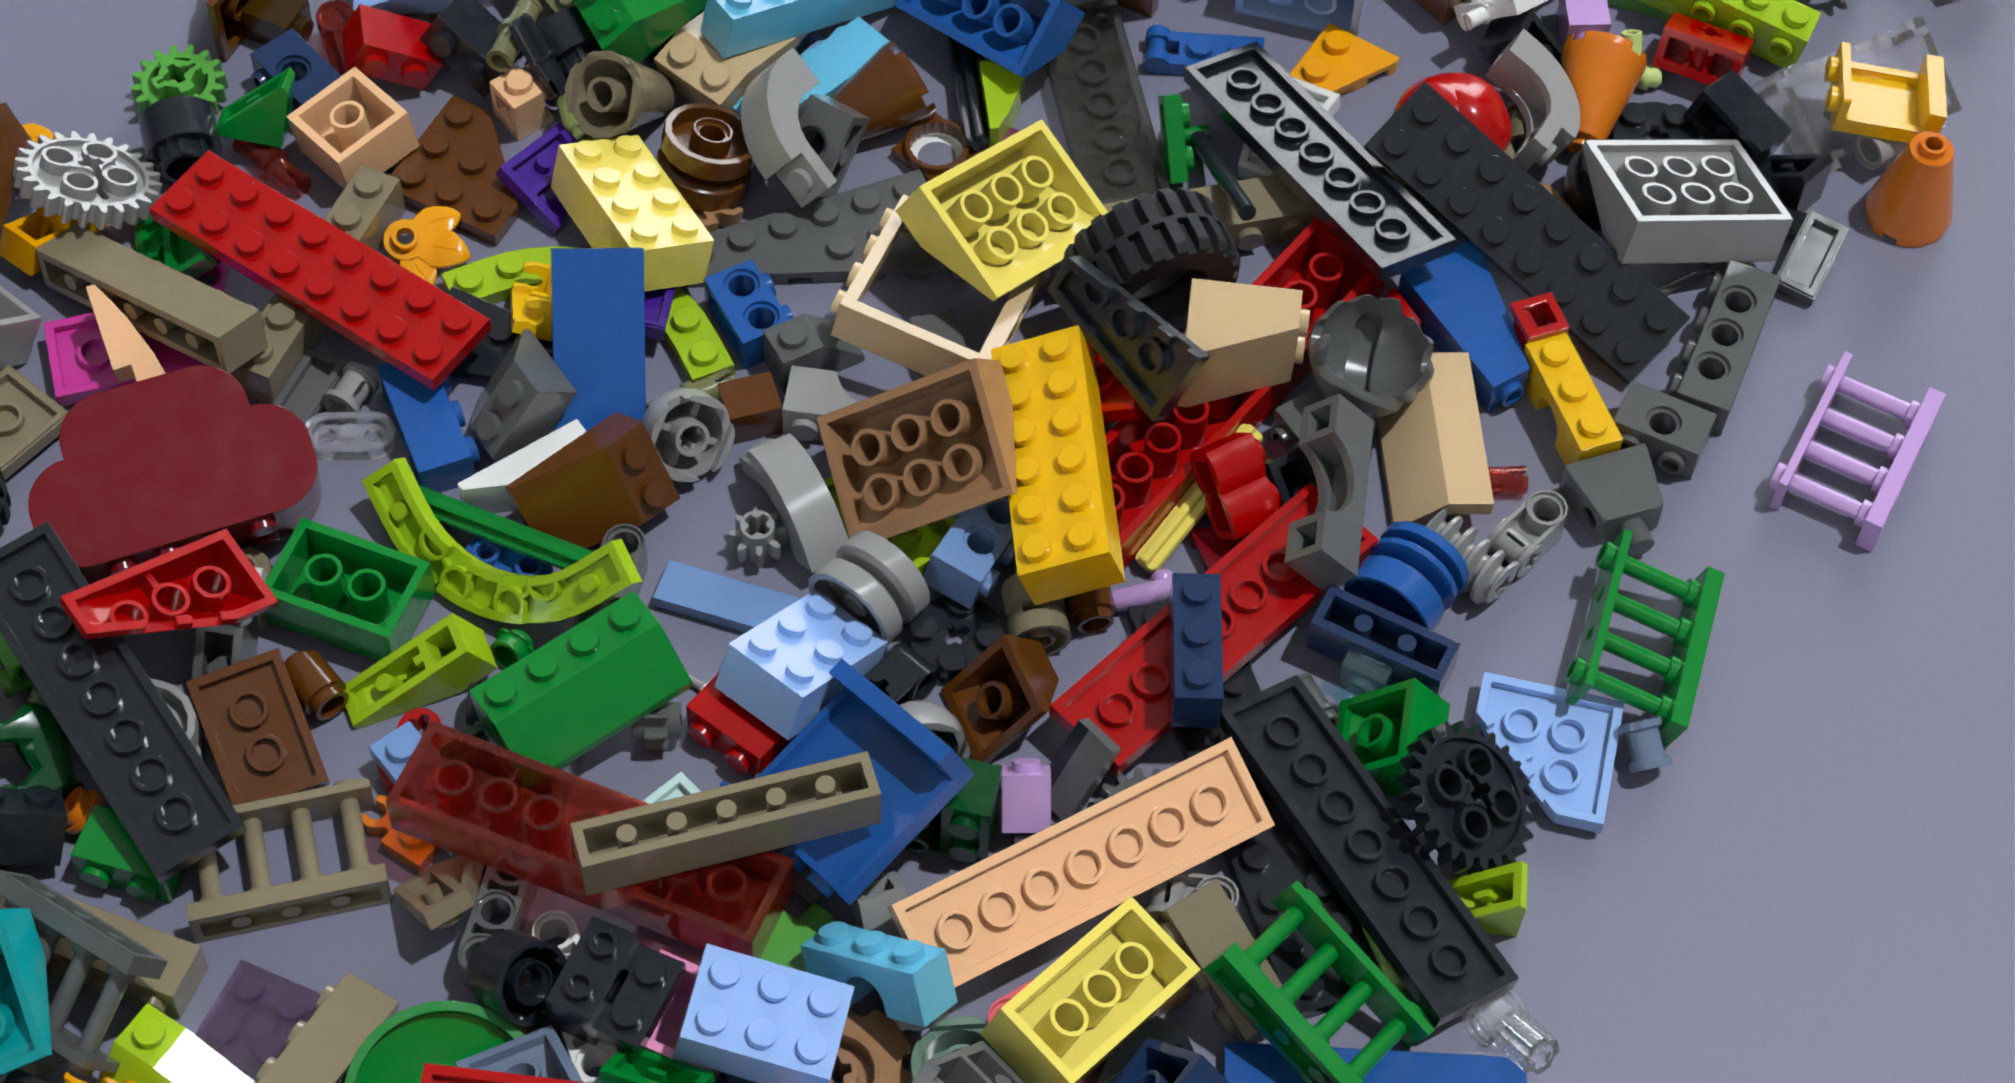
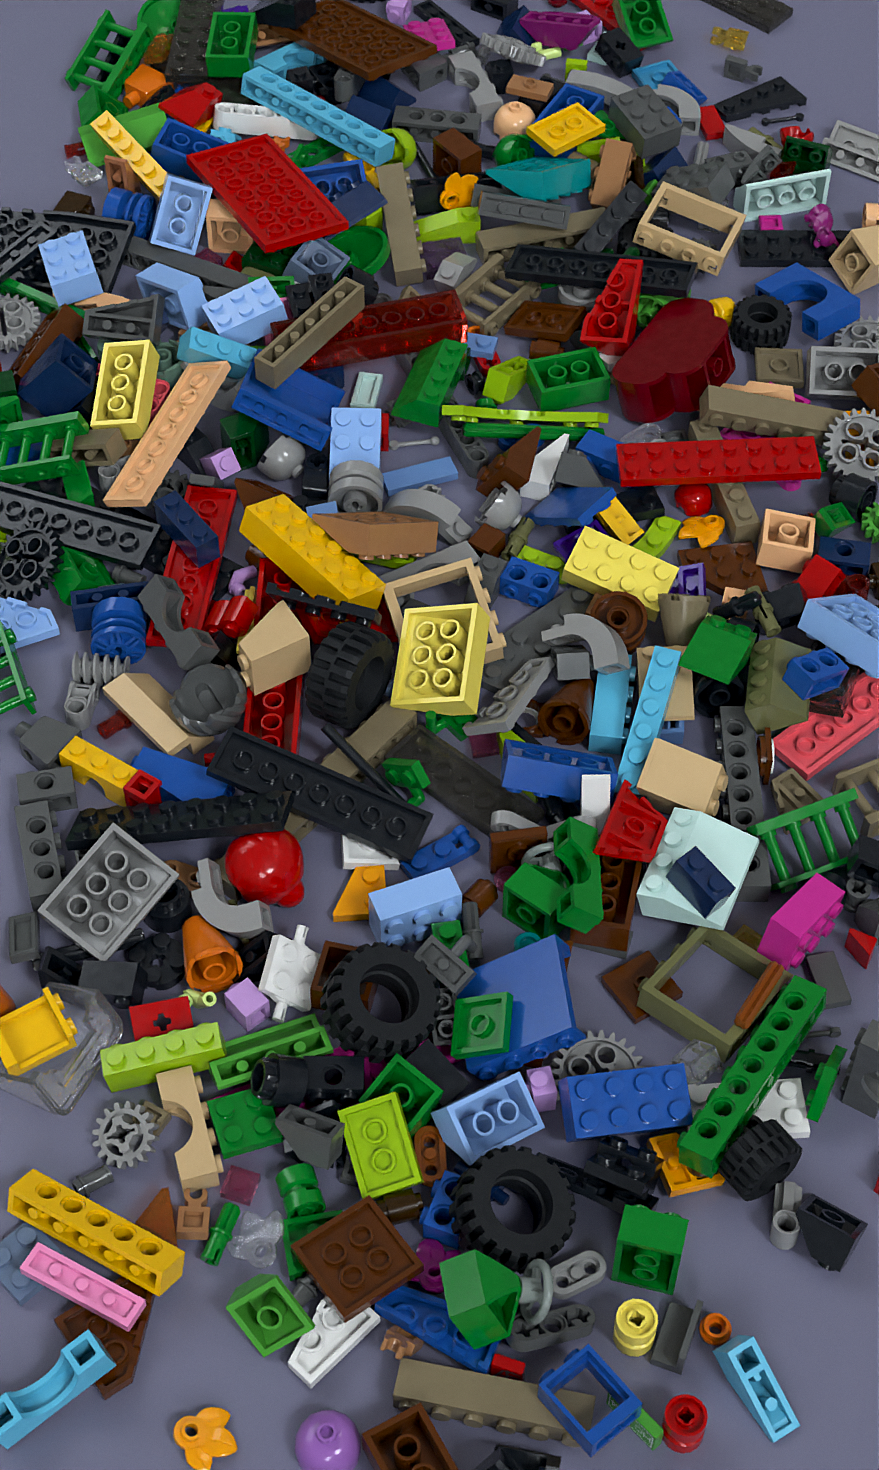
camera: 145 degrees right, 5 degrees down
(296, 937) = (454, 271): none -> light grey slope
(942, 137) = (511, 700): none -> light grey wing
(1289, 867) = (79, 487): none -> green slope

